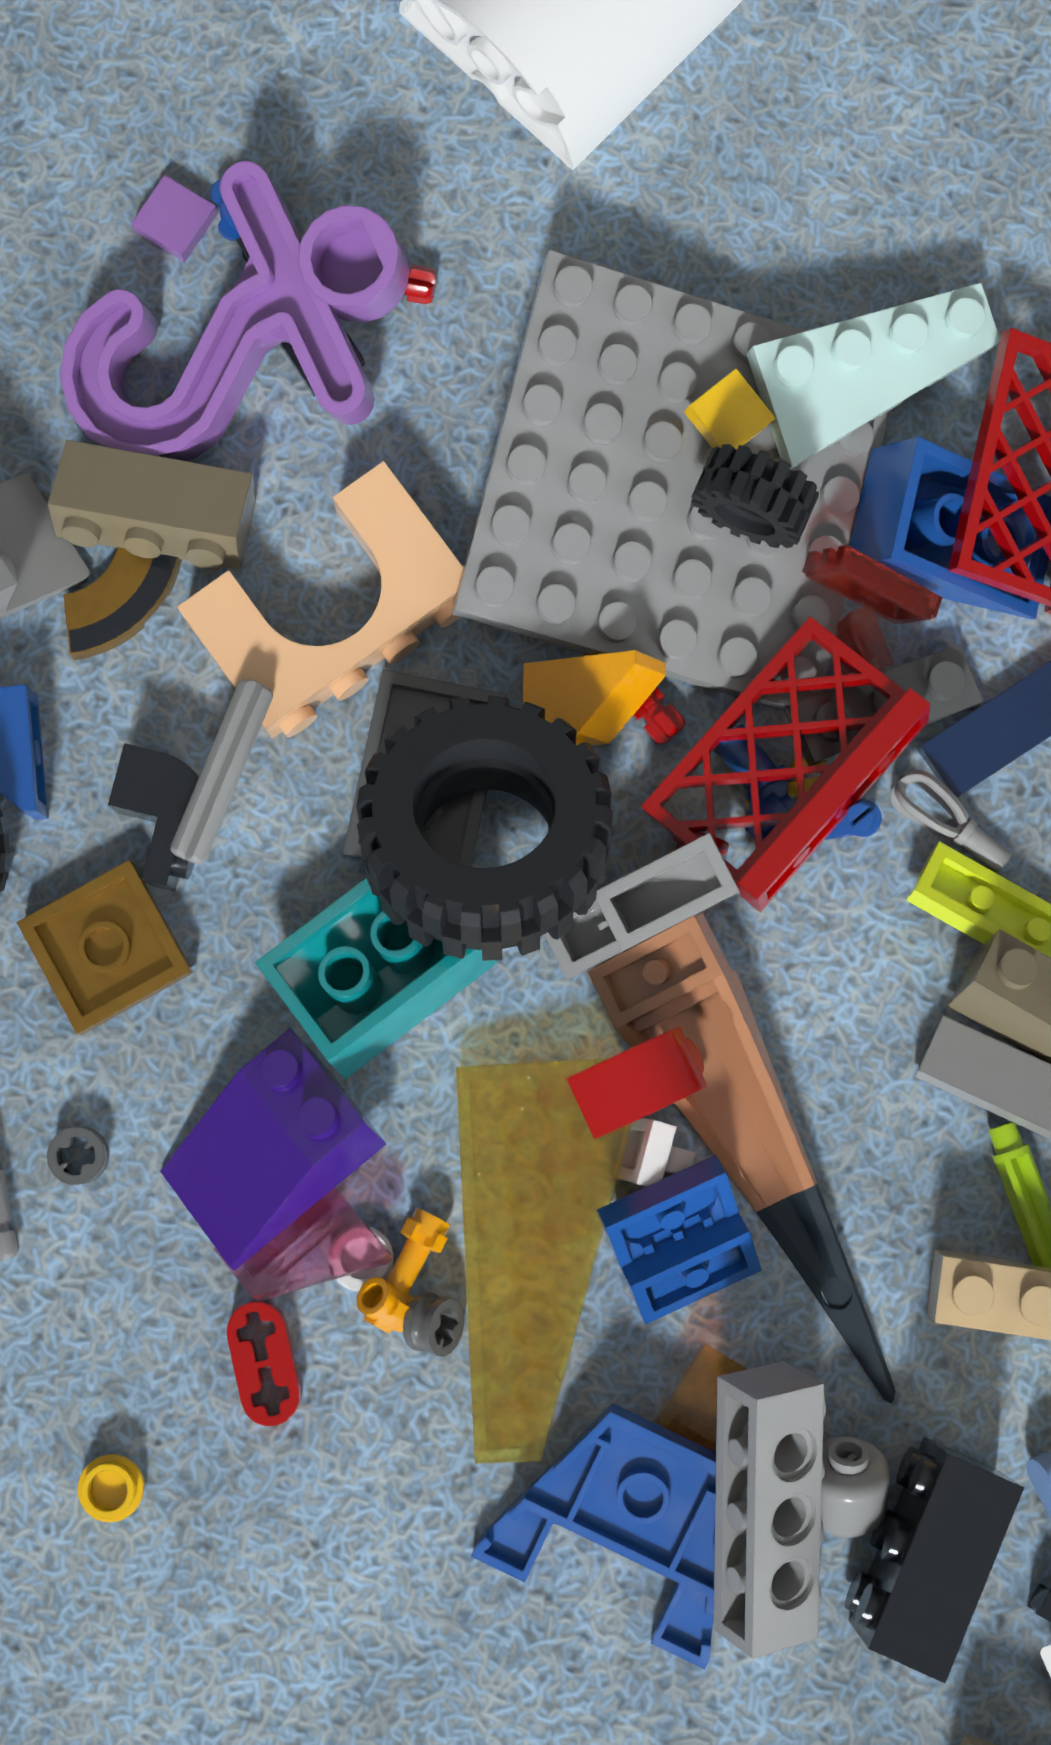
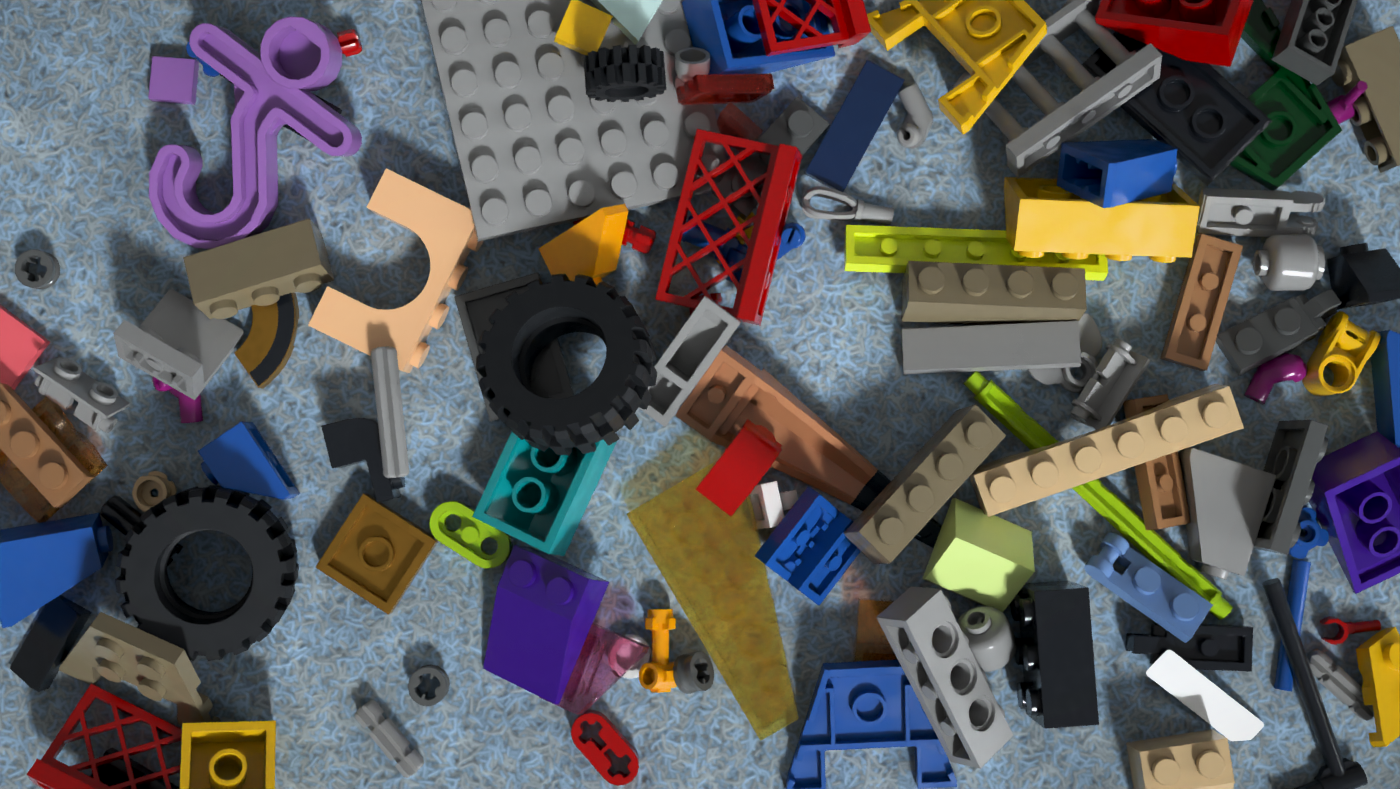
camera: 25 degrees left, 5 degrees up
(237, 989) = (470, 536): none -> lime plate
(846, 527) = (691, 62): none -> light grey hinge
(870, 1235) = (924, 485): none -> dark tan brick
(895, 1373) = (981, 556): none -> yellowish green slope

